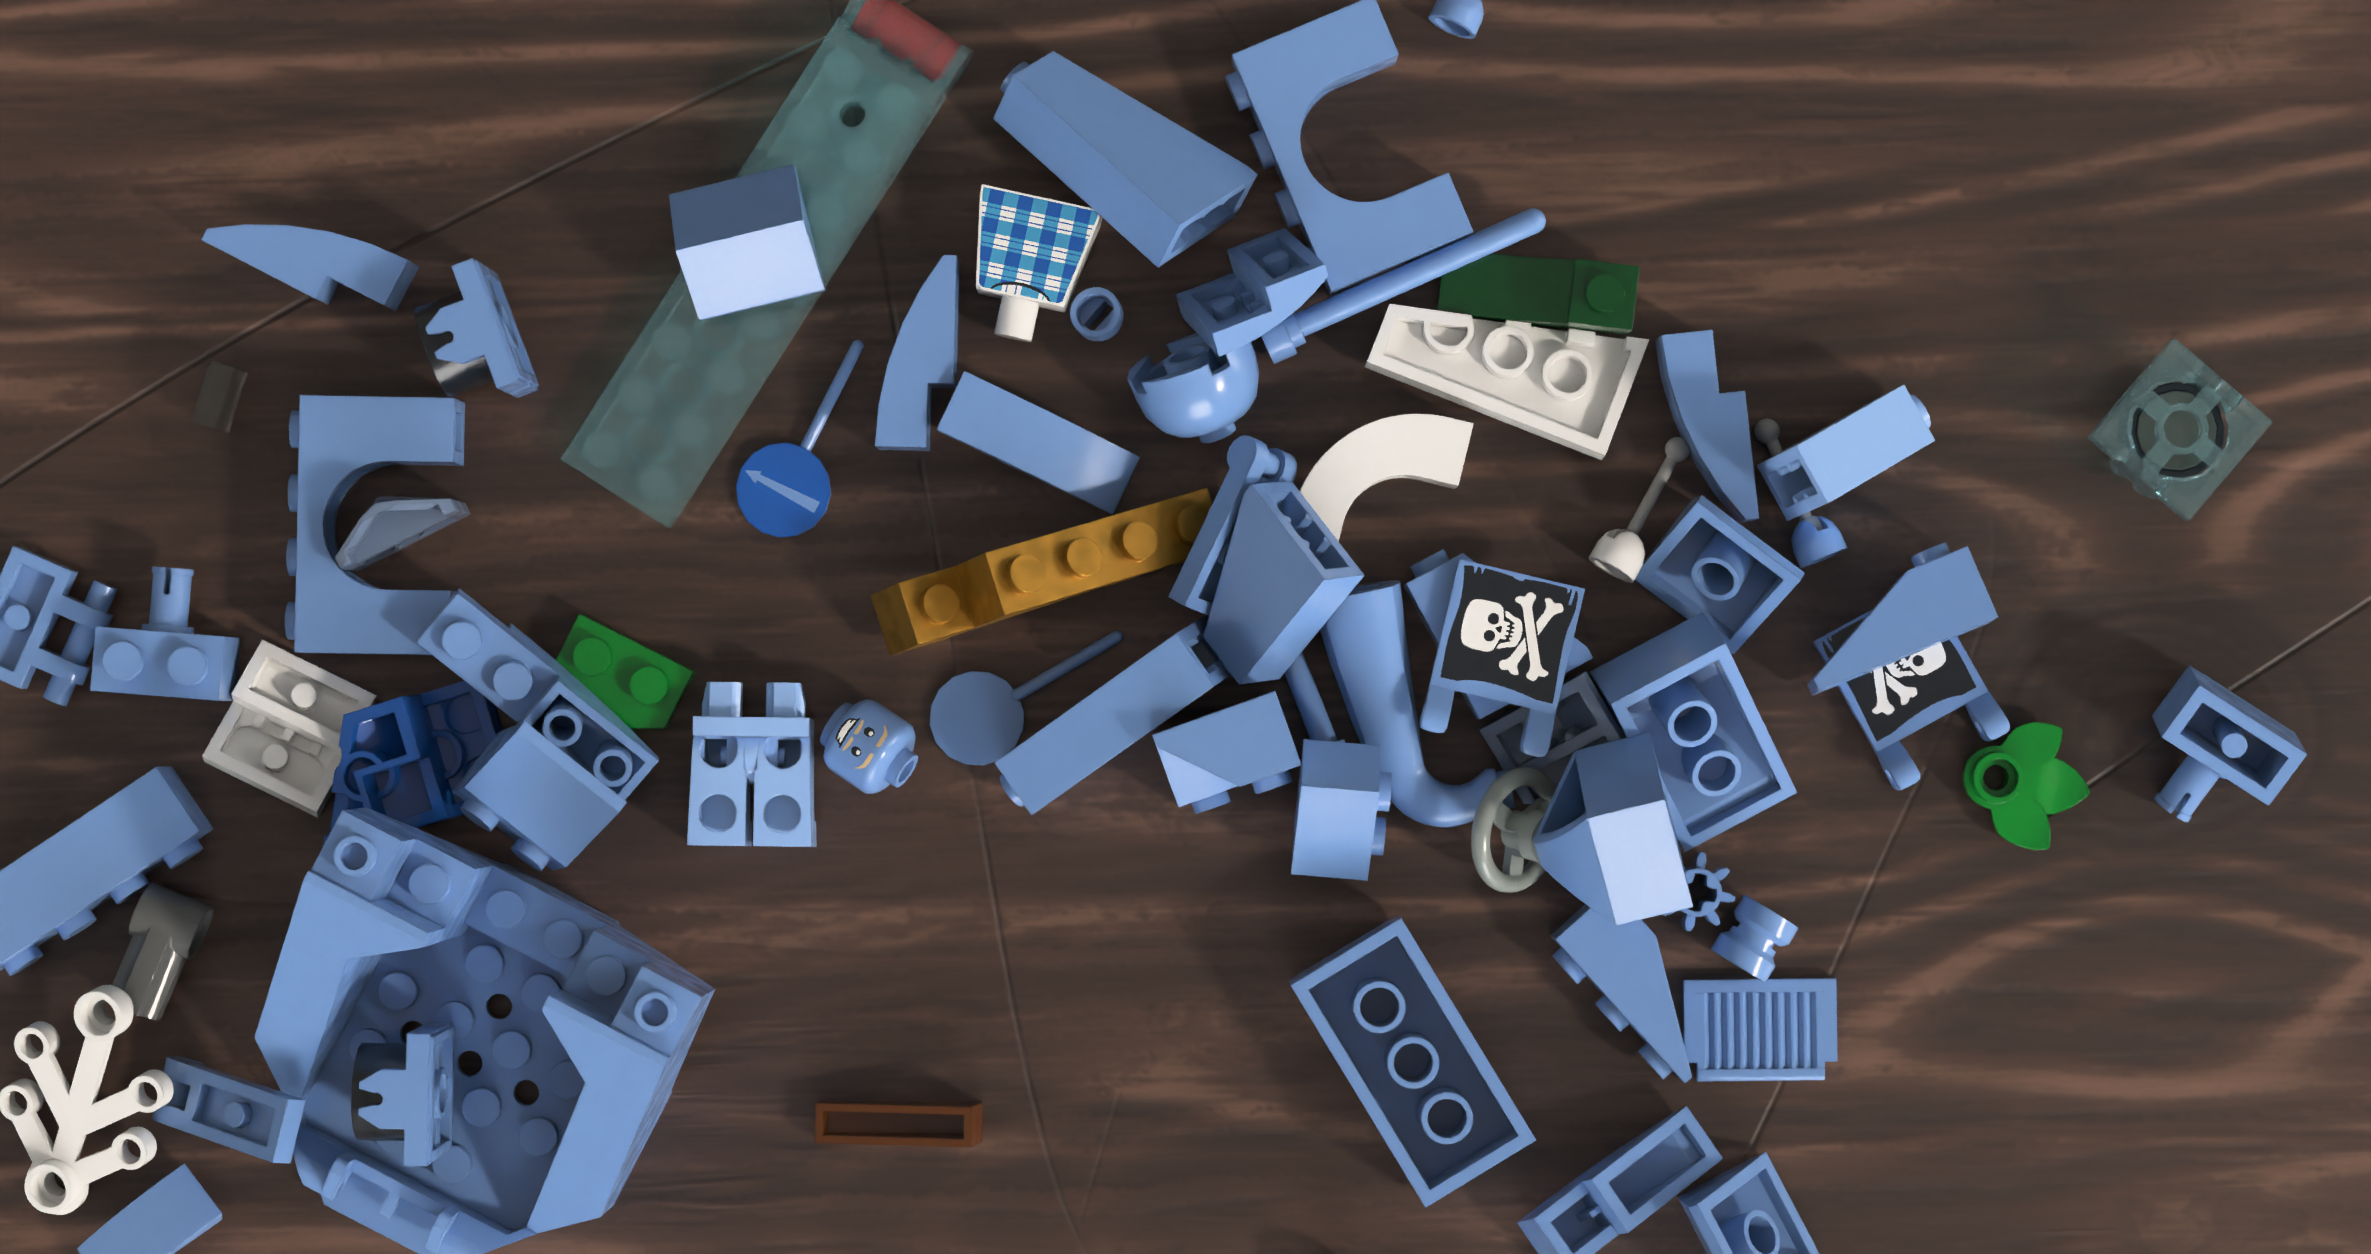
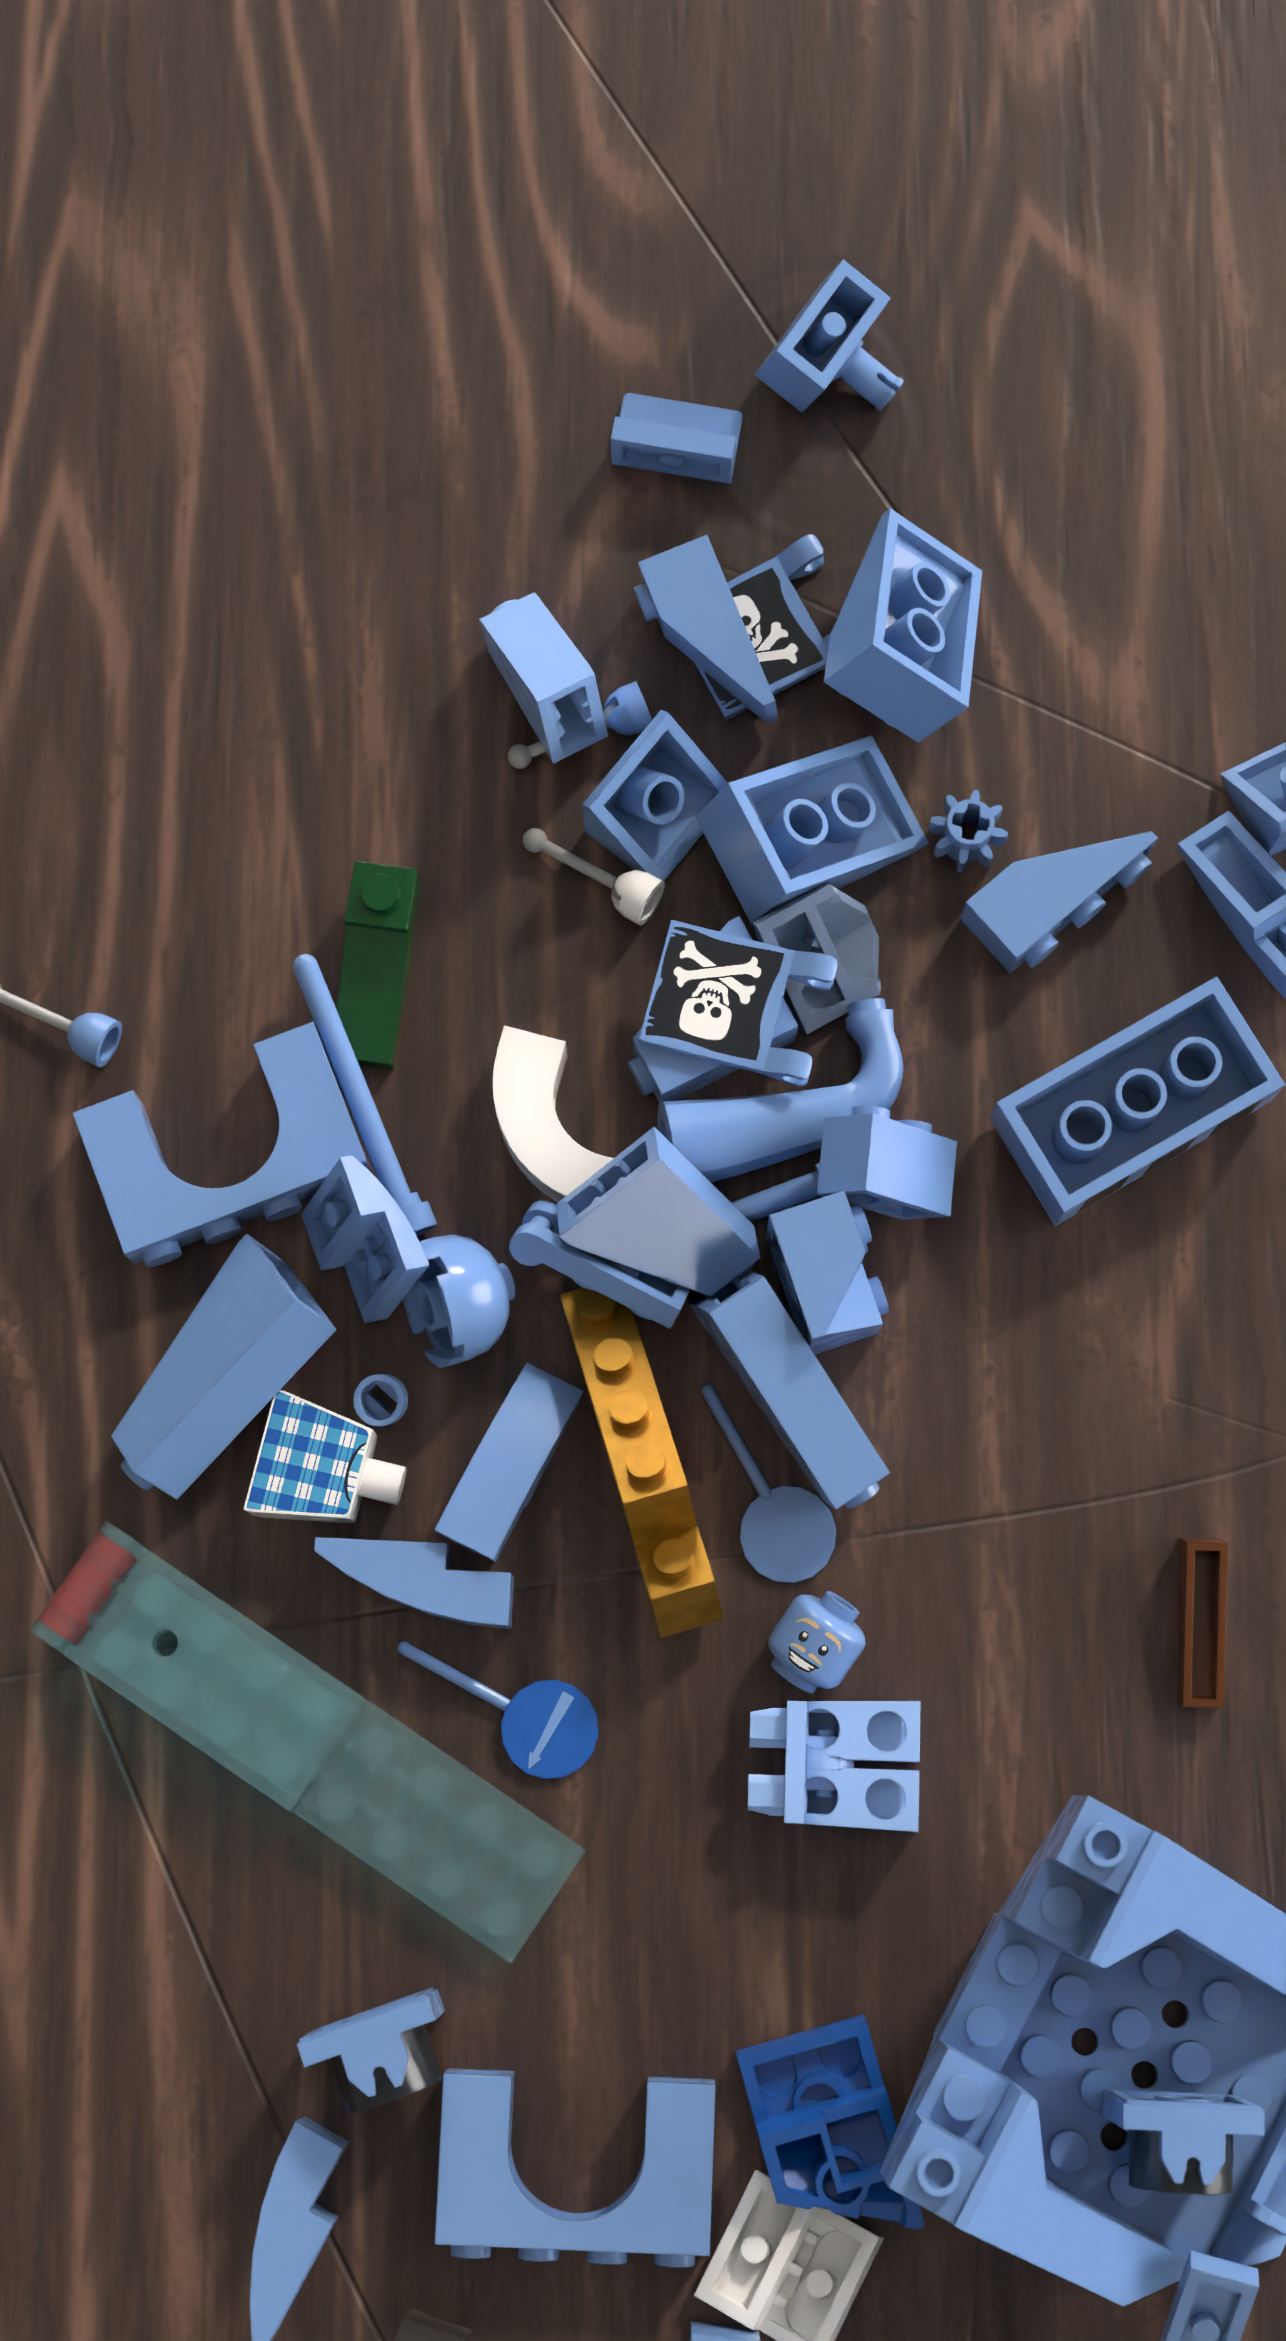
camera: 85 degrees left, 10 degrees down
(395, 524) = (574, 2142): sand blue slope -> none
(536, 798) = (867, 1990): medium blue slope -> none
(537, 690) = (760, 1987): medium blue slope -> none
(624, 674) = (747, 1917): green wing -> none
(745, 242) = (292, 1753): slope -> none
(1531, 377) = (459, 976): white wing -> none
(1596, 833) = (915, 902): medium blue piece -> none
(1709, 420) = (508, 806): medium blue slope -> none
(1752, 941) = (1016, 776): medium blue wheel -> none
(1760, 1028) = (1099, 774): medium blue window -> none
(1905, 827) = (907, 630): none -> medium blue slope
(2031, 786) = (852, 520): green plate -> none
(2121, 585) = (676, 437): none -> medium blue panel
(2178, 430) = (532, 378): clear light blue piece -> none

